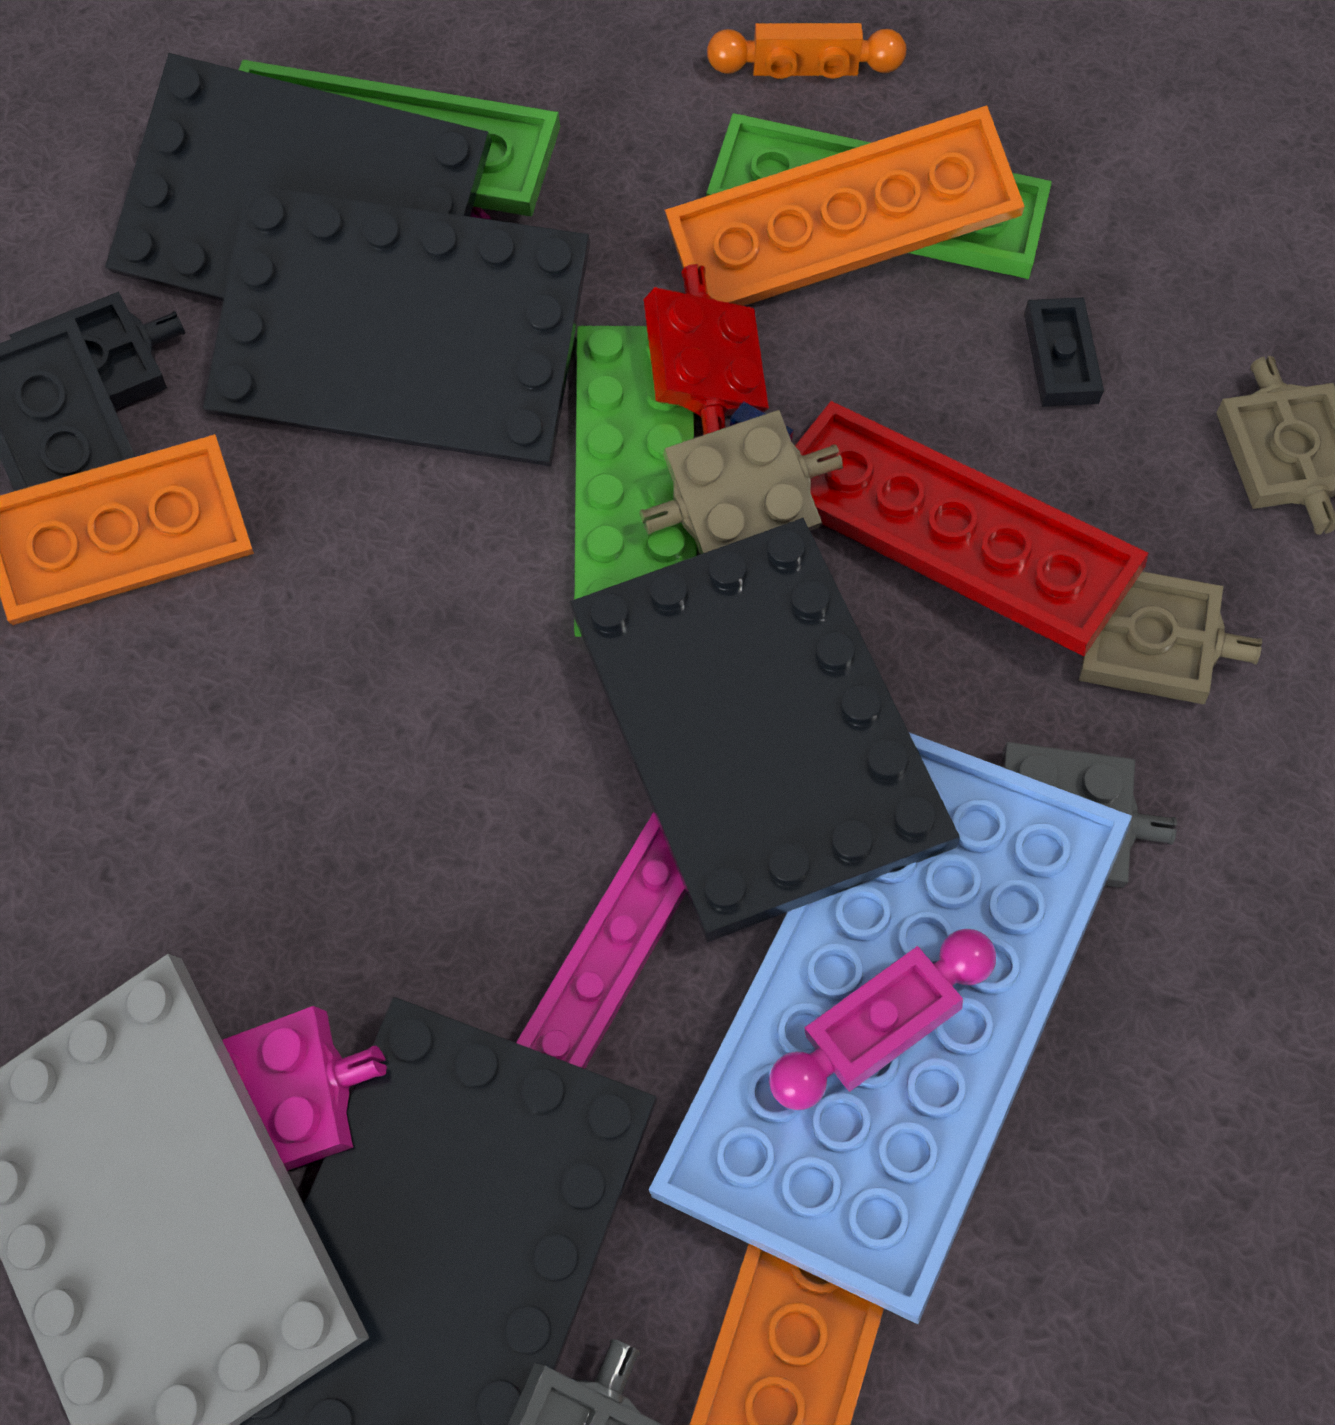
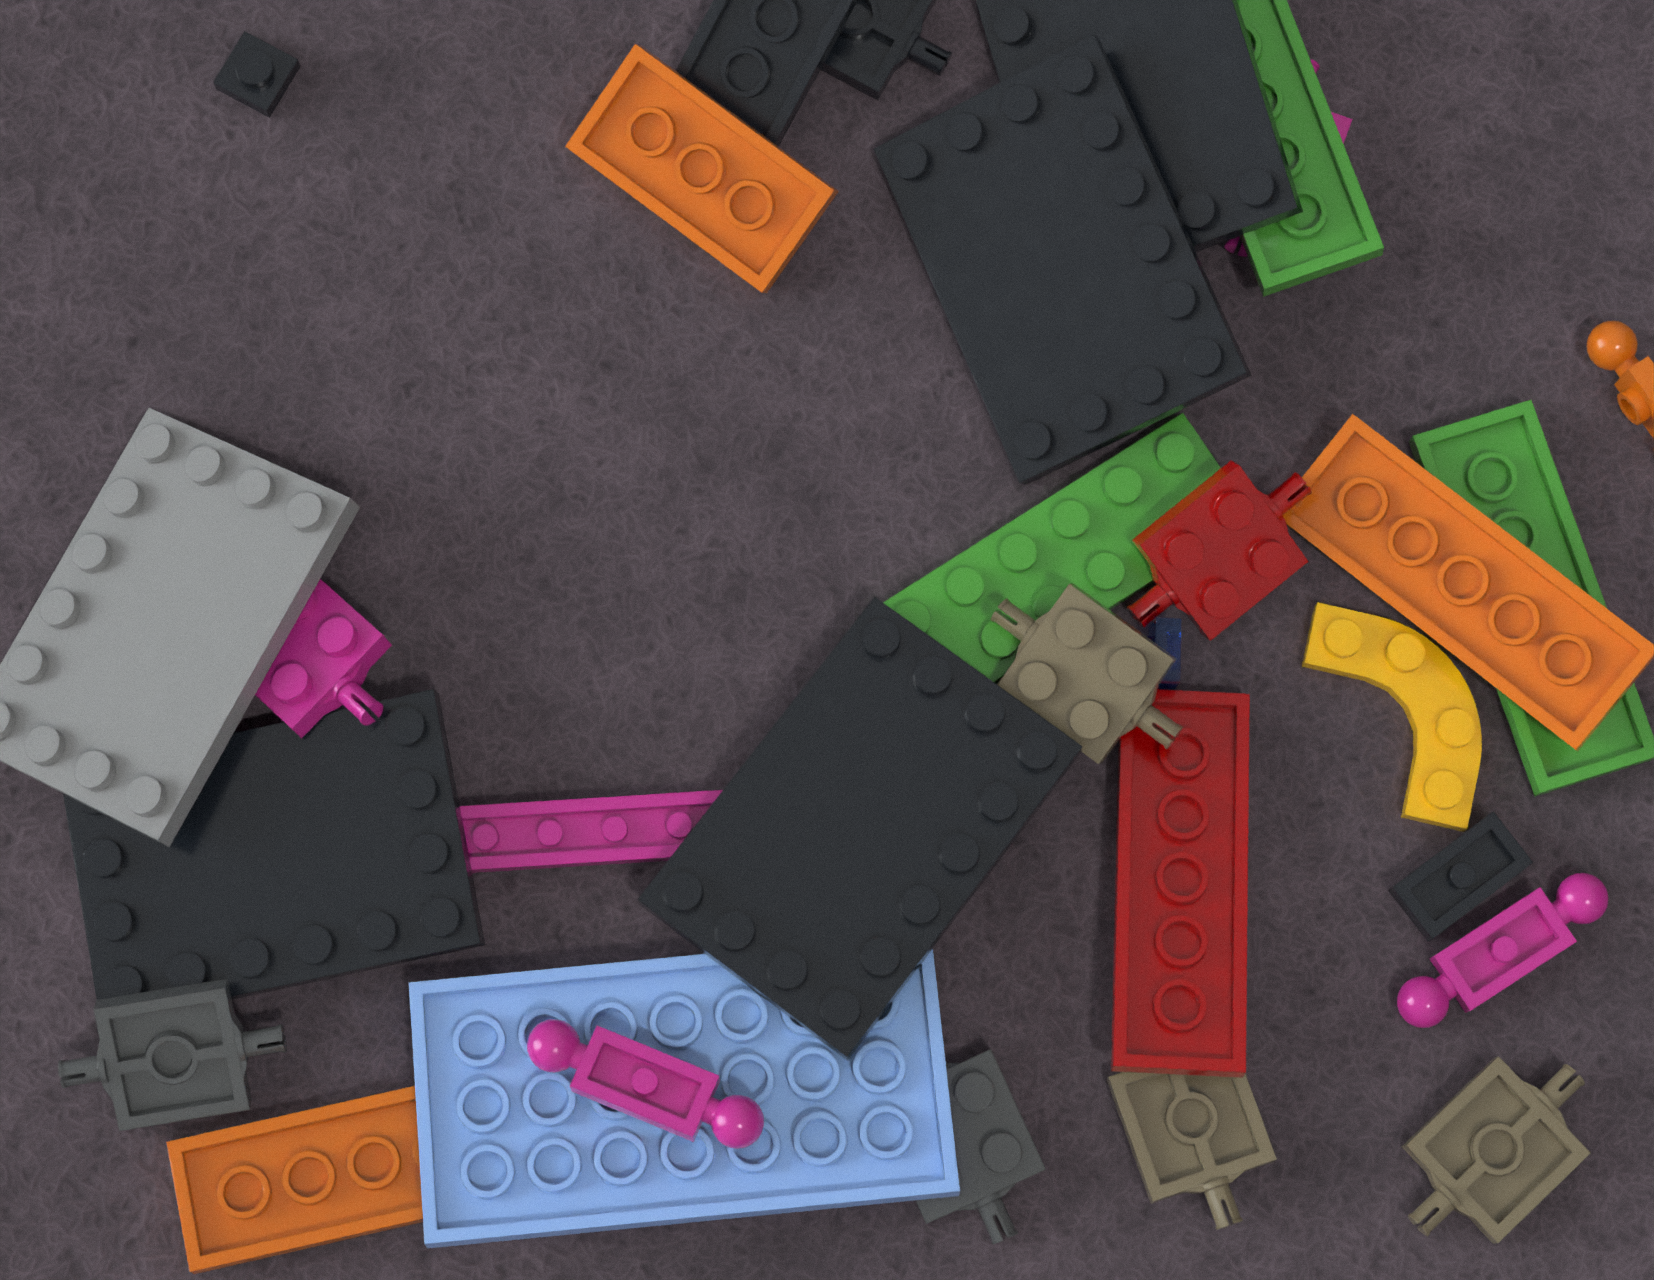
camera: 55 degrees right, 15 degrees up
(912, 298) = (1429, 691): none -> yellow plate
(1138, 358) = (1502, 950): none -> dark pink plate

